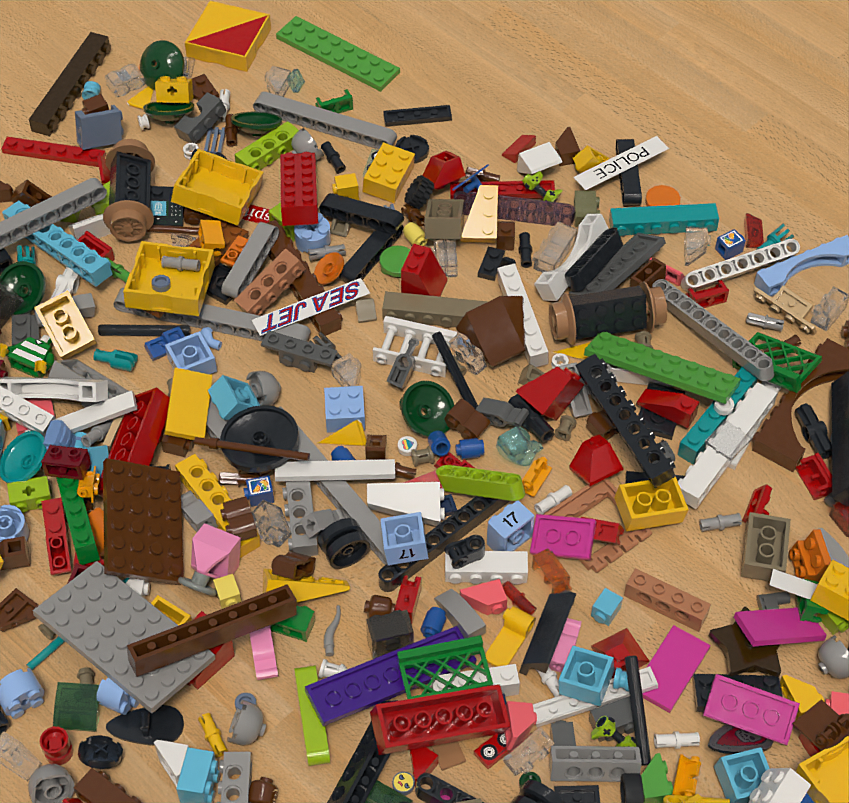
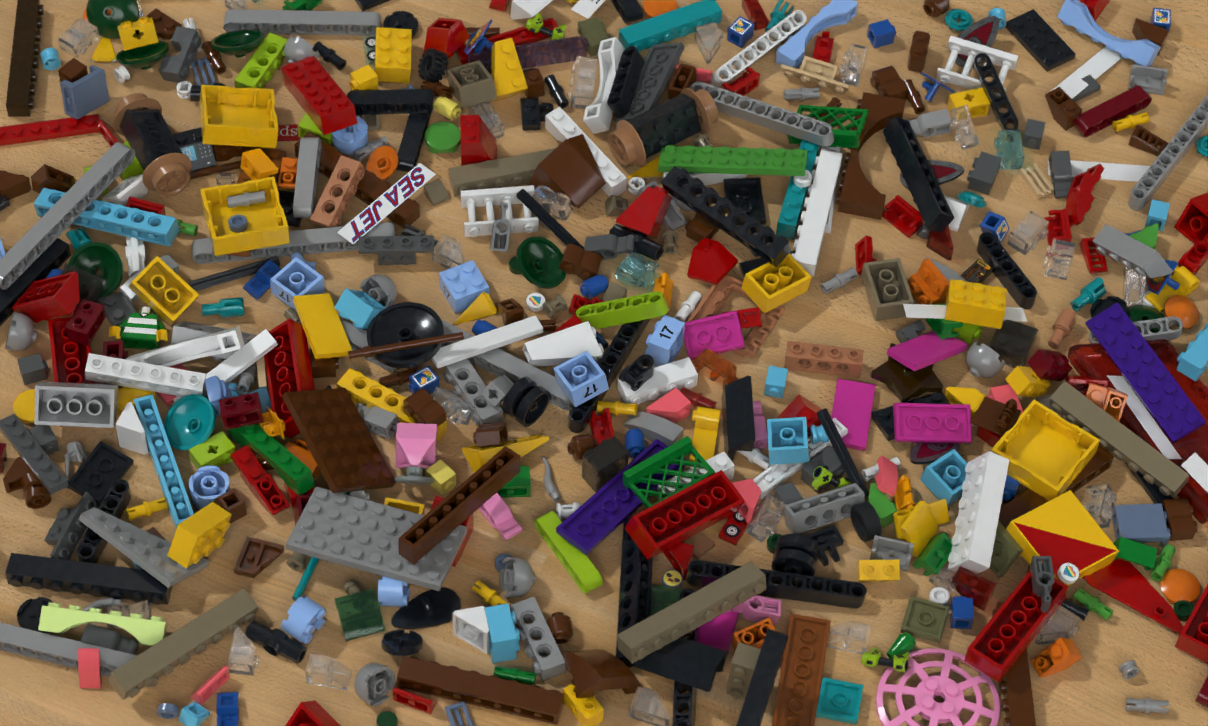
camera: 25 degrees left, 0 degrees up
(56, 745) = (360, 650): red wheel -> none
(434, 580) = (618, 408): none -> yellow pin
(439, 443) = (566, 289): blue brick -> none
(487, 462) = (614, 292): none -> dark tan slope
(670, 405) = (754, 193): red slope -> none
(676, 752) = (887, 476): none -> coral slope
(728, 440) = (819, 207): clear piece -> none
(807, 284) = (823, 47): none -> red plate
(814, 430) = (884, 177): black piece -> none

